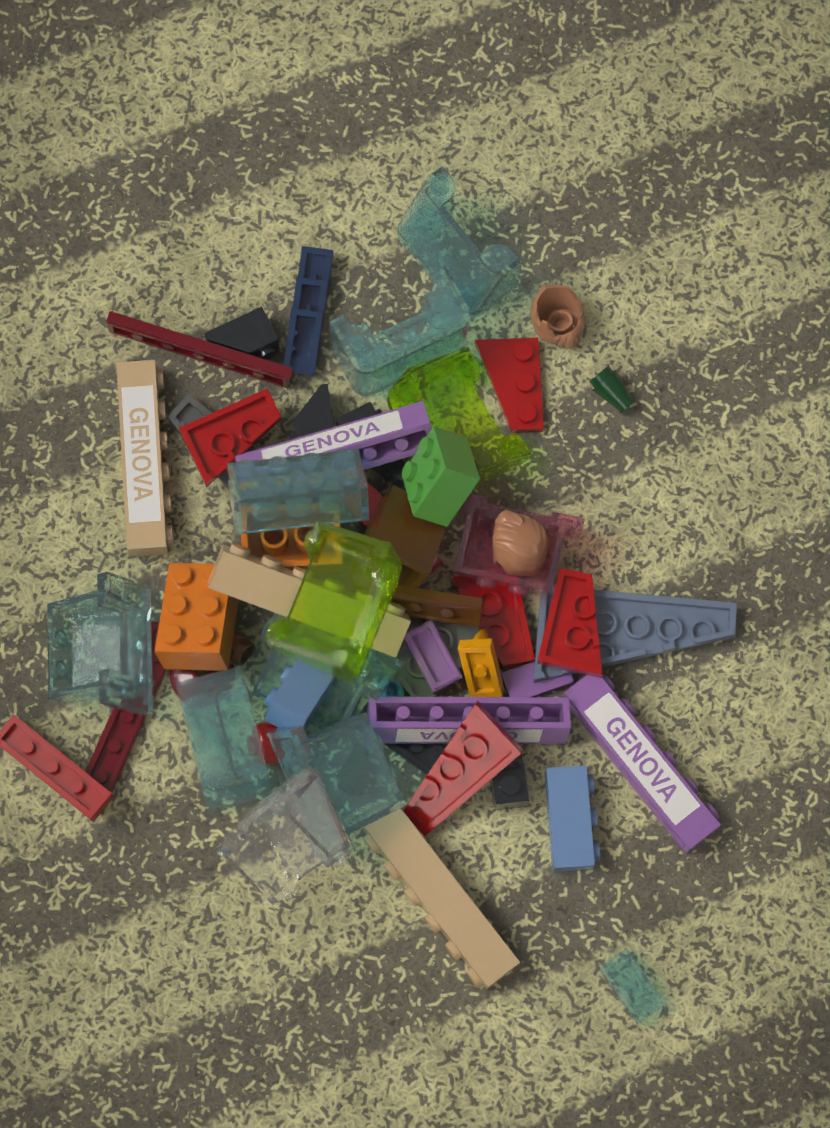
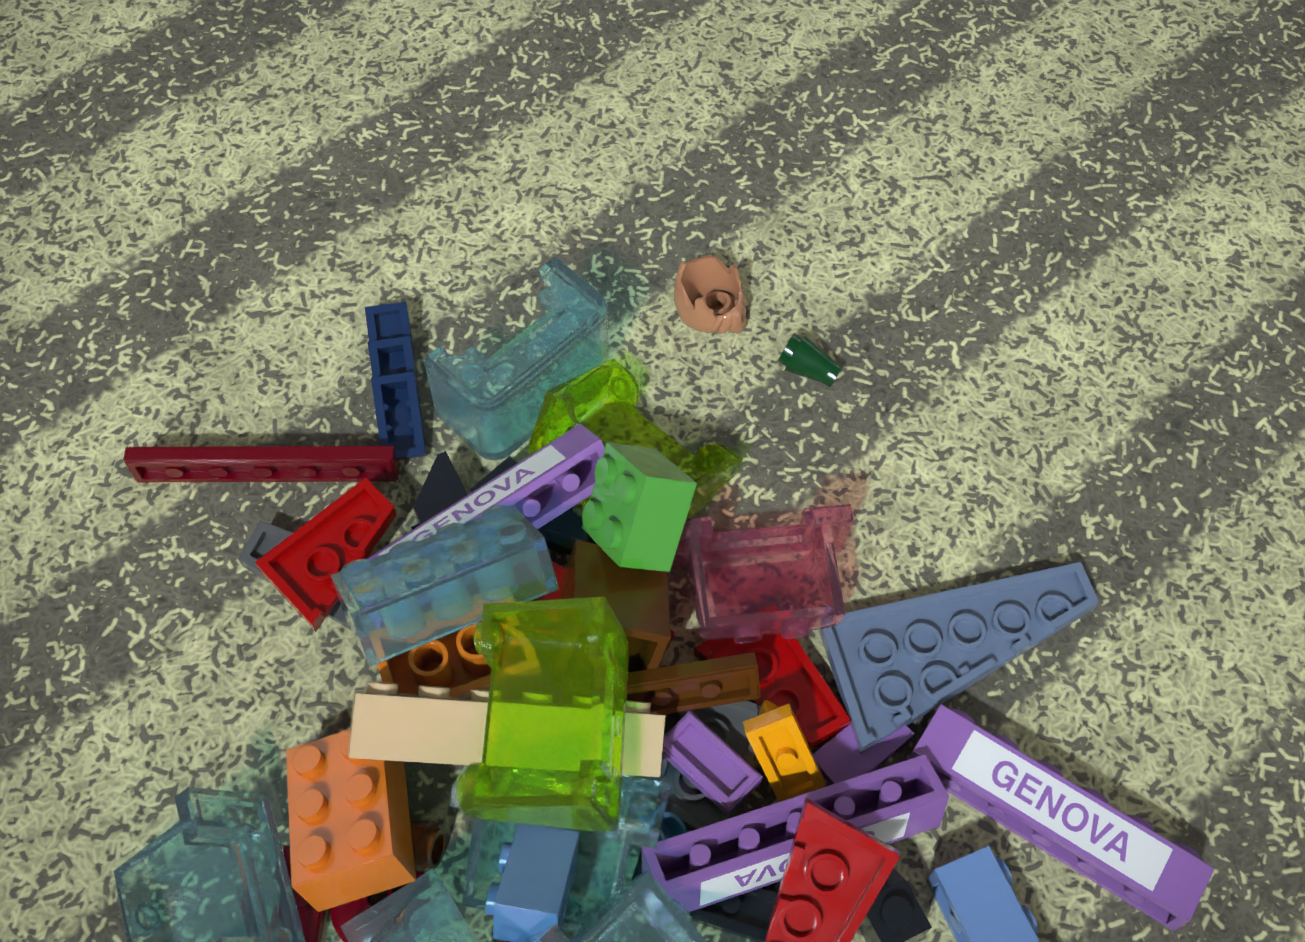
camera: 15 degrees left, 15 degrees down
(143, 458) = (217, 627): brick -> none
(248, 334) = (322, 422): black slope -> none
(440, 242) = (526, 235): clear light blue windscreen -> none
(516, 379) = (686, 385): red wing -> none
(519, 544) = (773, 569): nougat hair -> none
(571, 626) = (886, 660): red wing -> none

